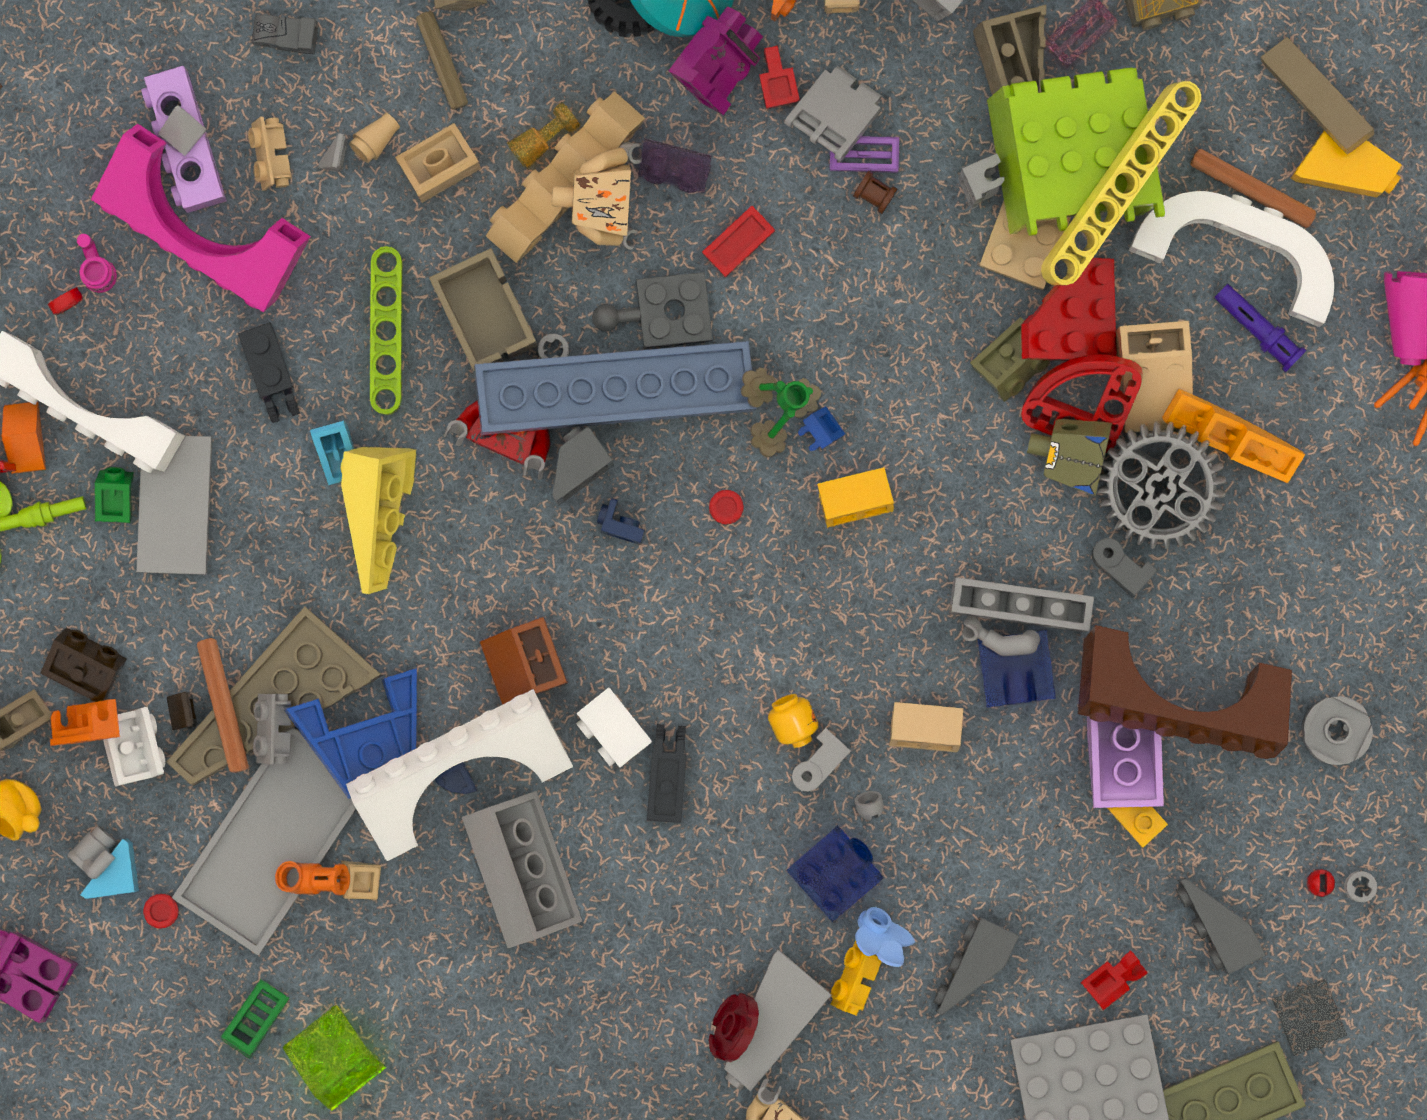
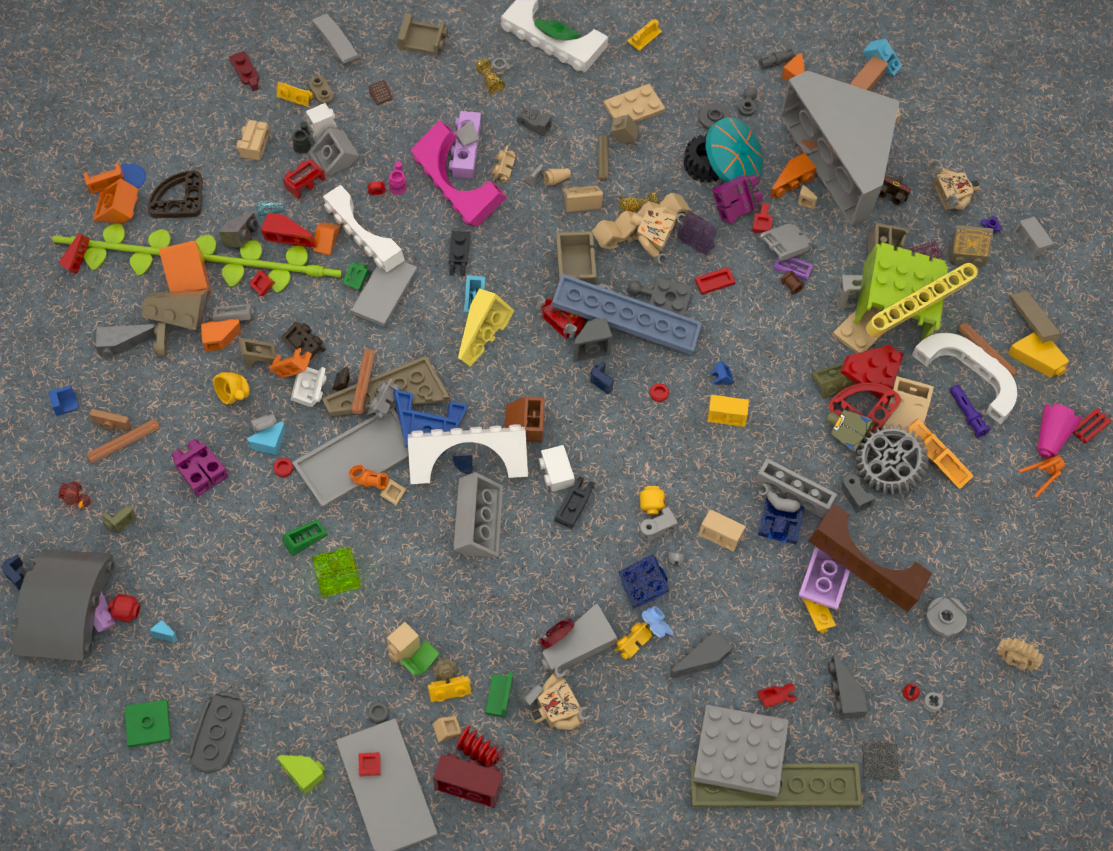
camera: 25 degrees right, 25 degrees down
(381, 314) = (524, 249): lime beam -> none
(794, 398) = (715, 344): dark tan plant -> none

